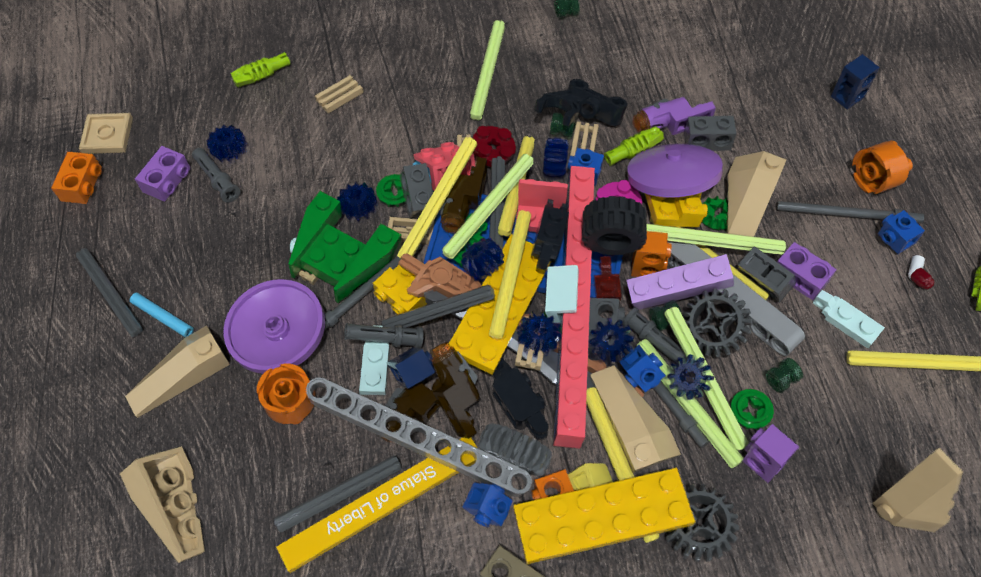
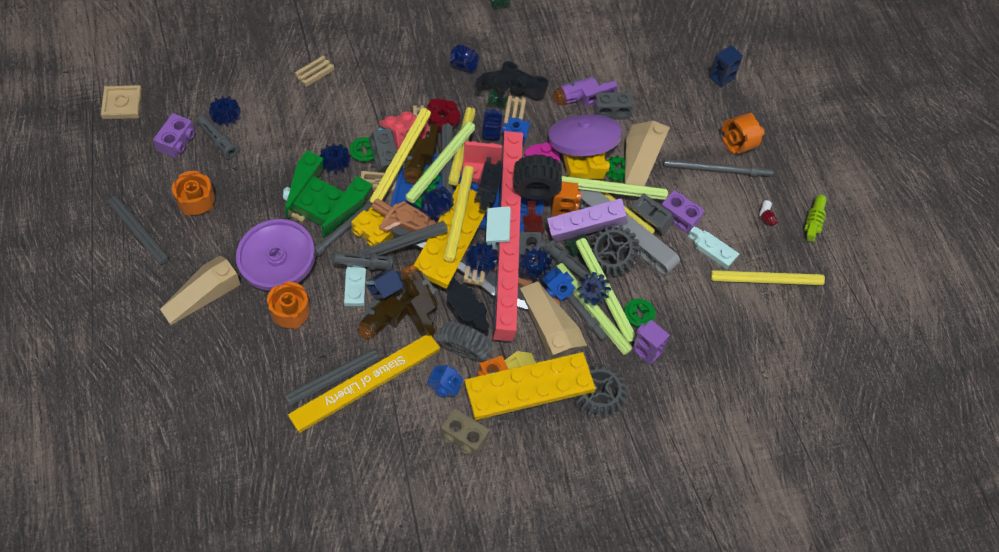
camera: 10 degrees left, 0 degrees up
(76, 177) = (102, 138): orange brick -> none
(161, 314) = (182, 247): medium azure piece -> none
(164, 495) = (198, 377): tan wedge -> none
(178, 245) = (193, 193): none -> orange brick
(260, 69) = (247, 50): lime hinge -> none
(409, 426) = (386, 325): light grey beam -> none
(487, 70) = (436, 52): yellowish green axle -> none
(521, 76) = (464, 58): none -> clear blue gear
(610, 441) = (535, 336): light yellow axle -> none
(634, 145) = (554, 115): lime hinge -> none
(782, 376) = (661, 289): clear green wheel -> none
(900, 231) = (754, 182): blue brick -> none
(923, 495) = (754, 367): tan wedge -> none

